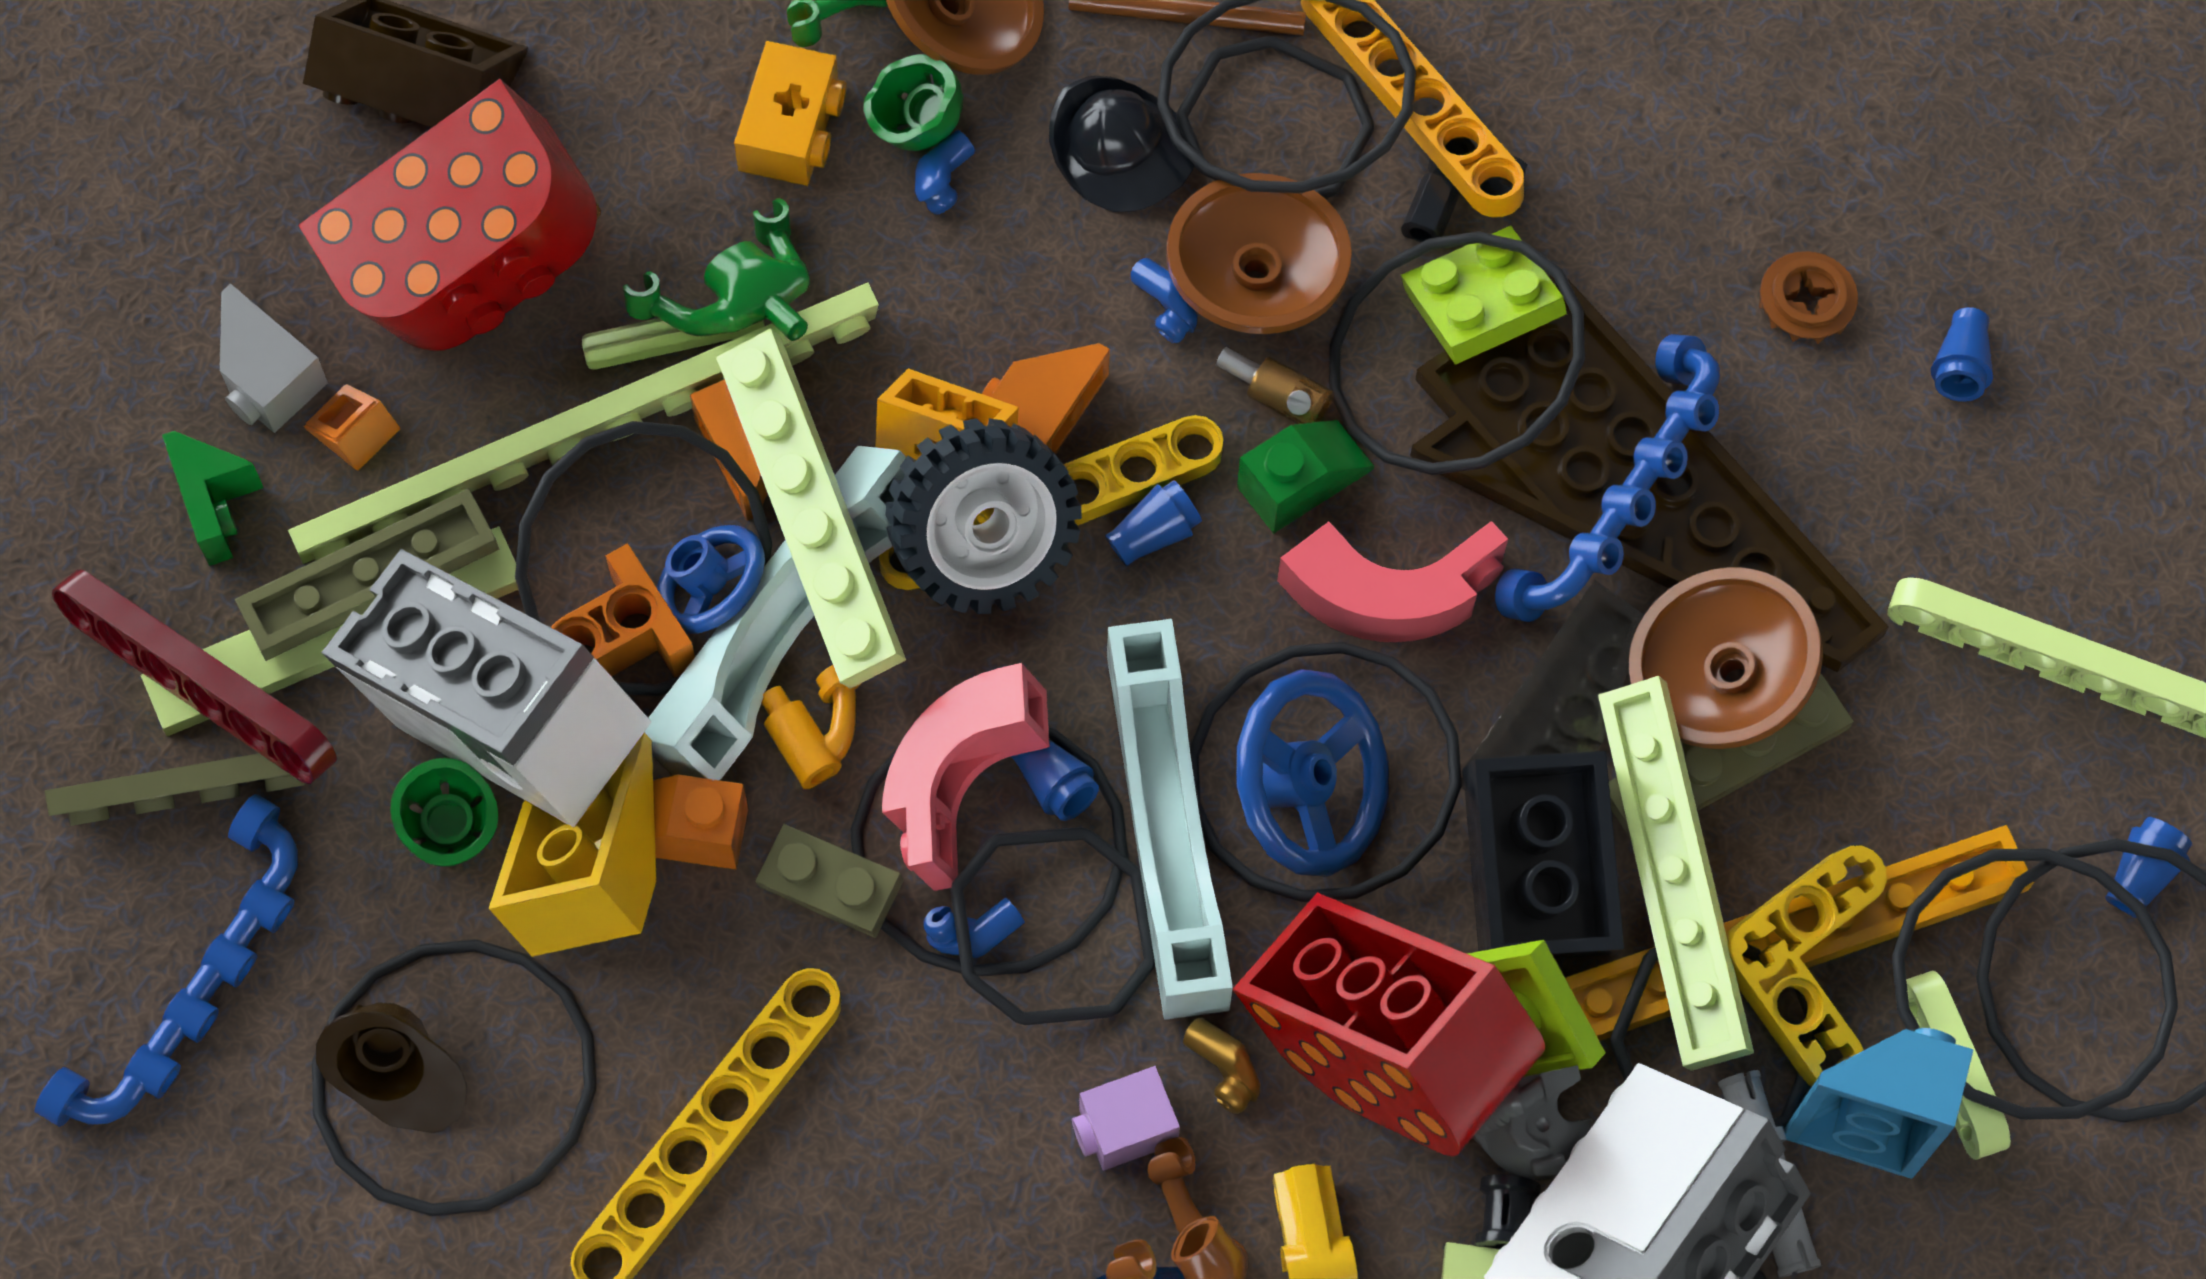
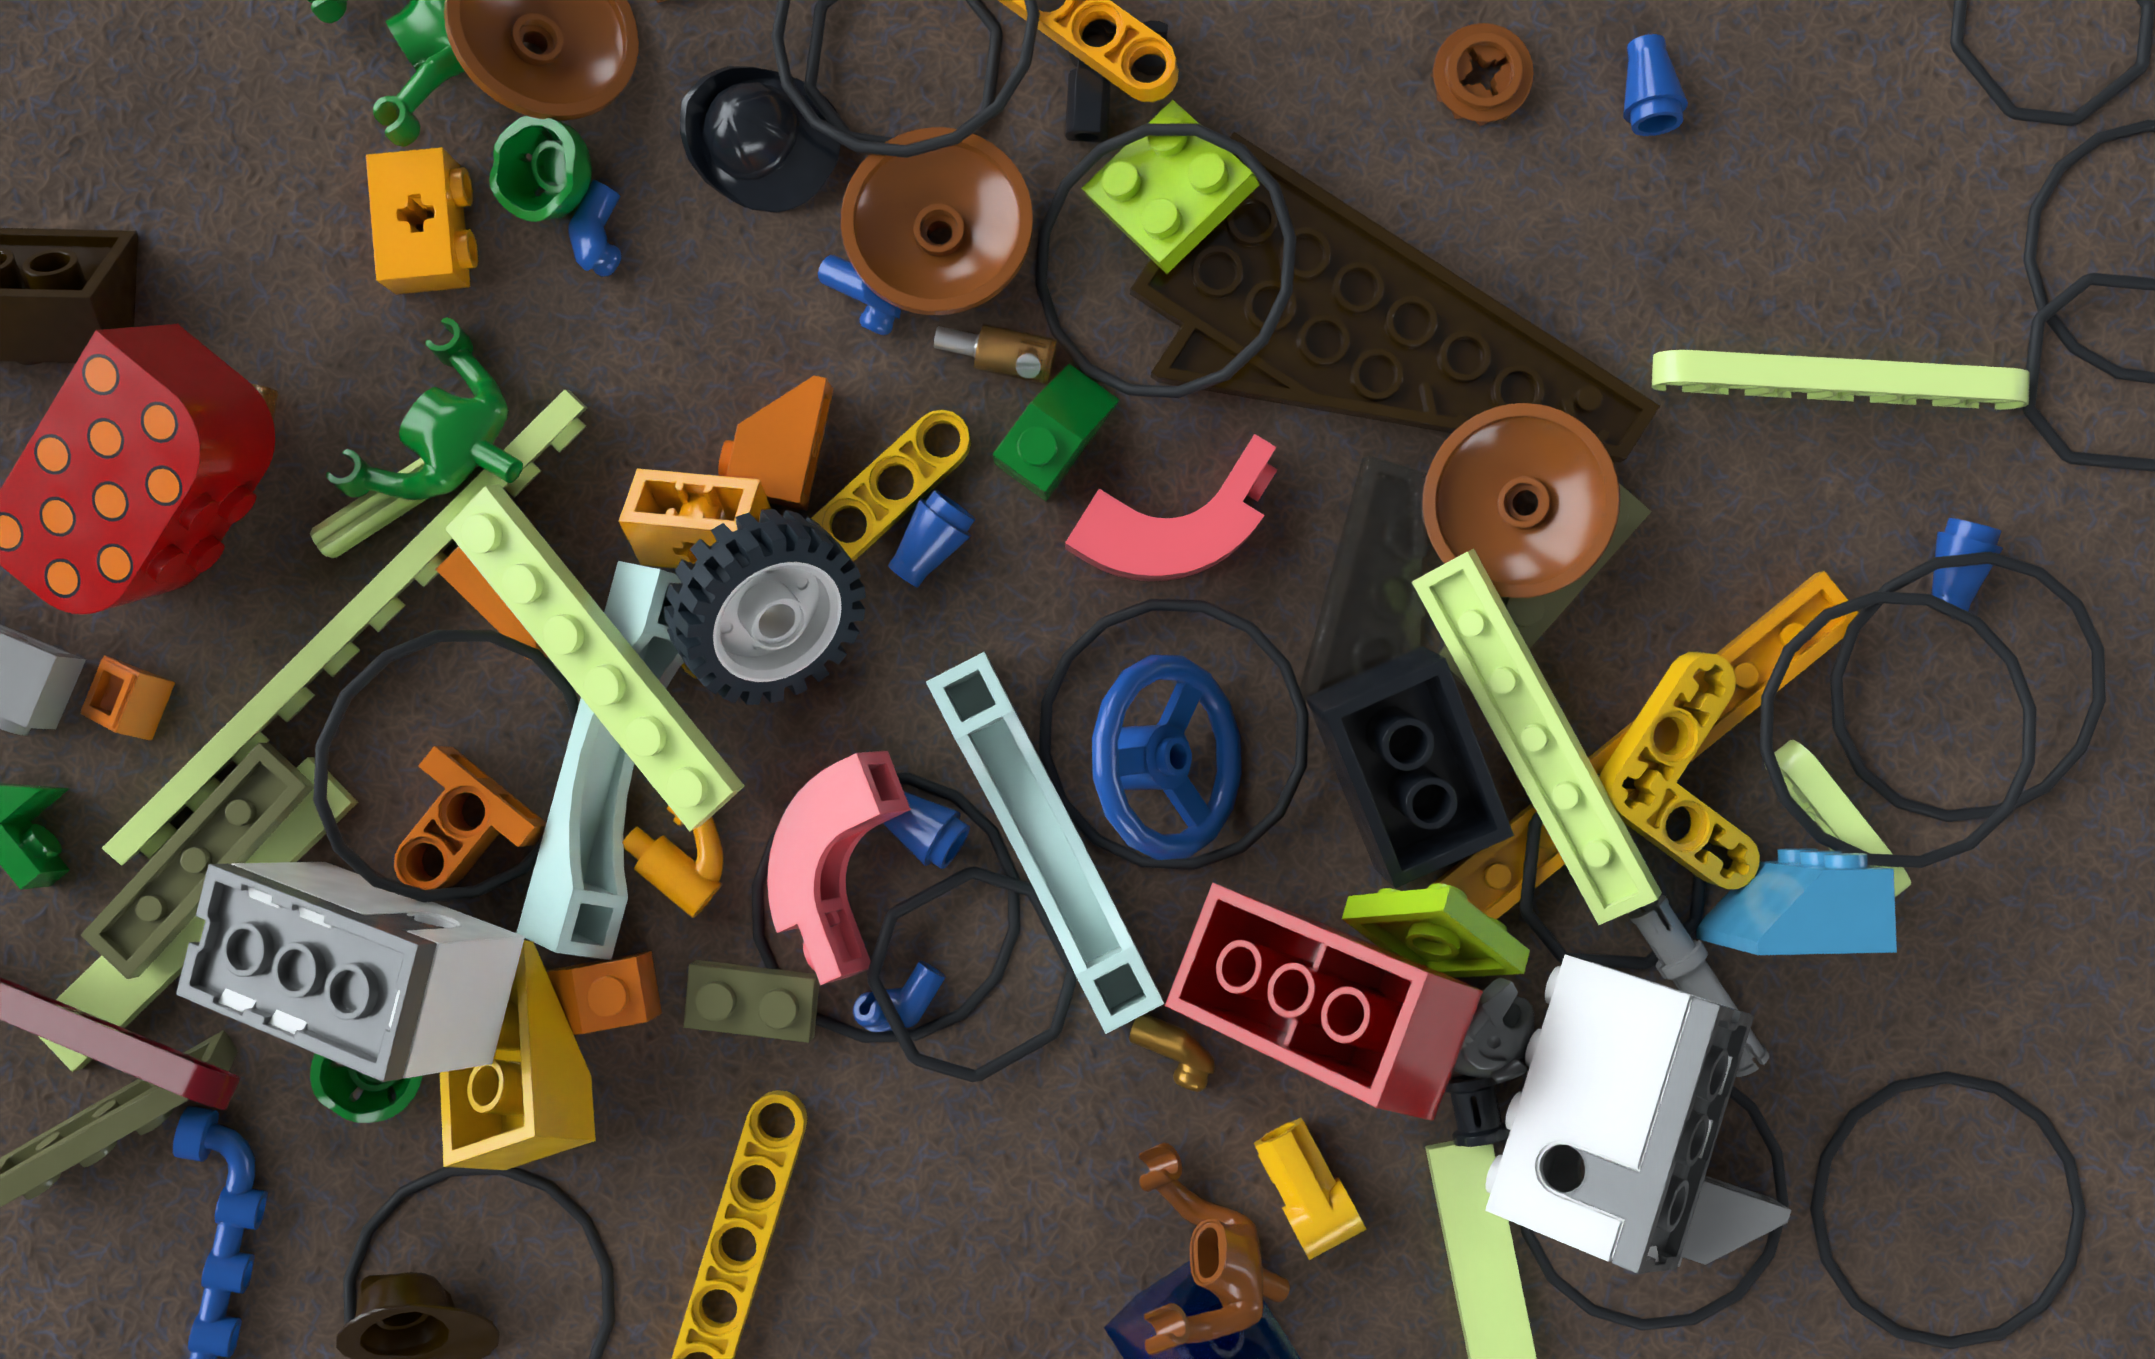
camera: 15 degrees left, 20 degrees up
(704, 573) = (519, 746): blue piece -> none
(1125, 1118) = (1103, 1141): lavender brick -> none
(1678, 360) = (1379, 189): blue bar -> none

